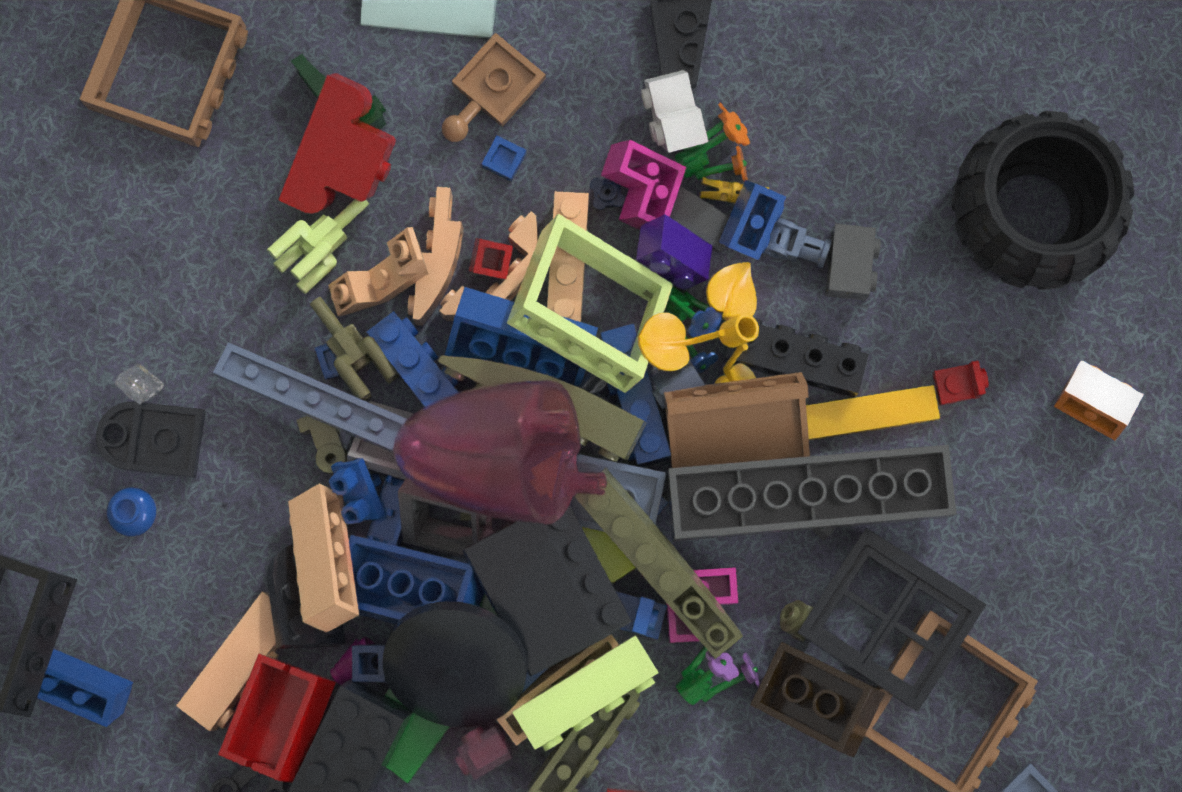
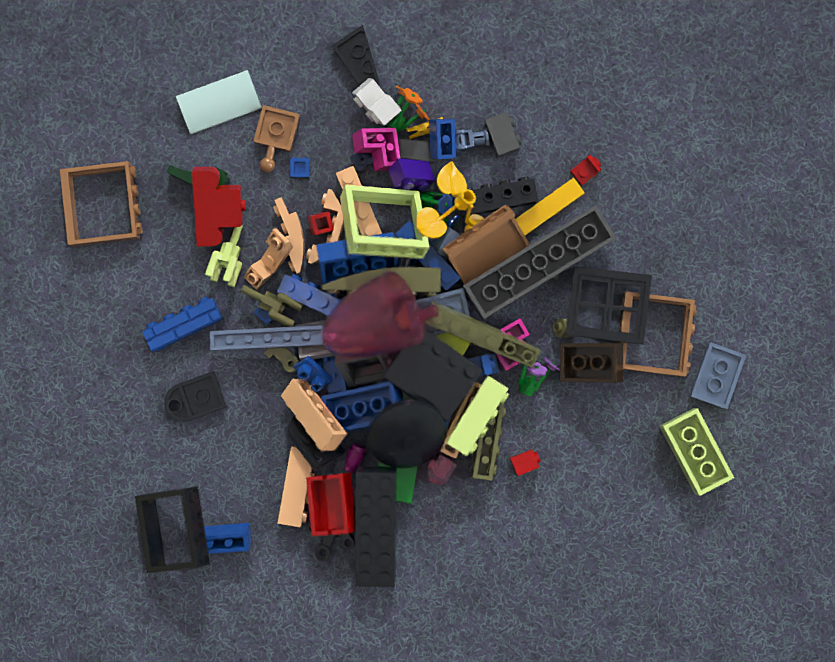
camera: 25 degrees left, 5 degrees up
(131, 511) = (203, 440): blue piece -> none
(139, 384) = (174, 374): clear plate -> none
(193, 312) = (183, 324): none -> blue brick
(365, 663) = (361, 456): dark blue plate -> none
(1073, 158) = (593, 29): black tyre -> none
(1098, 400) = (659, 145): brick -> none

